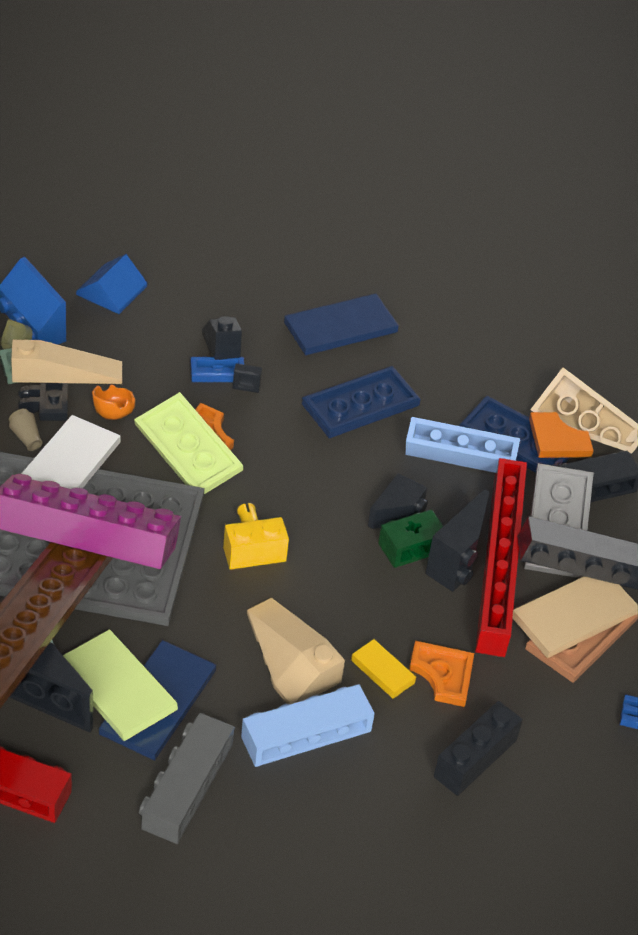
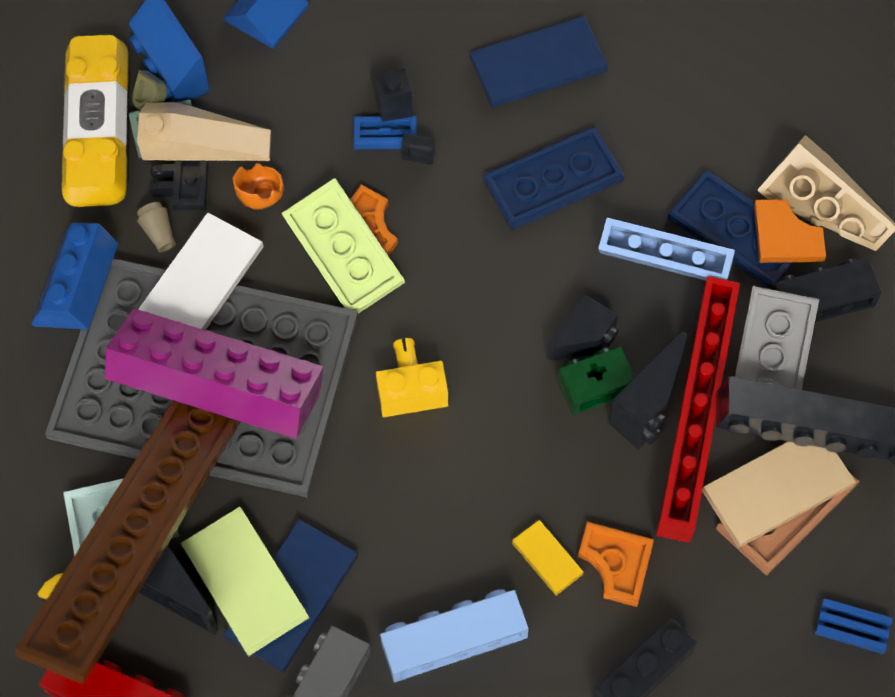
camera: 10 degrees right, 20 degrees up
(296, 655) = (446, 539): tan wedge -> none

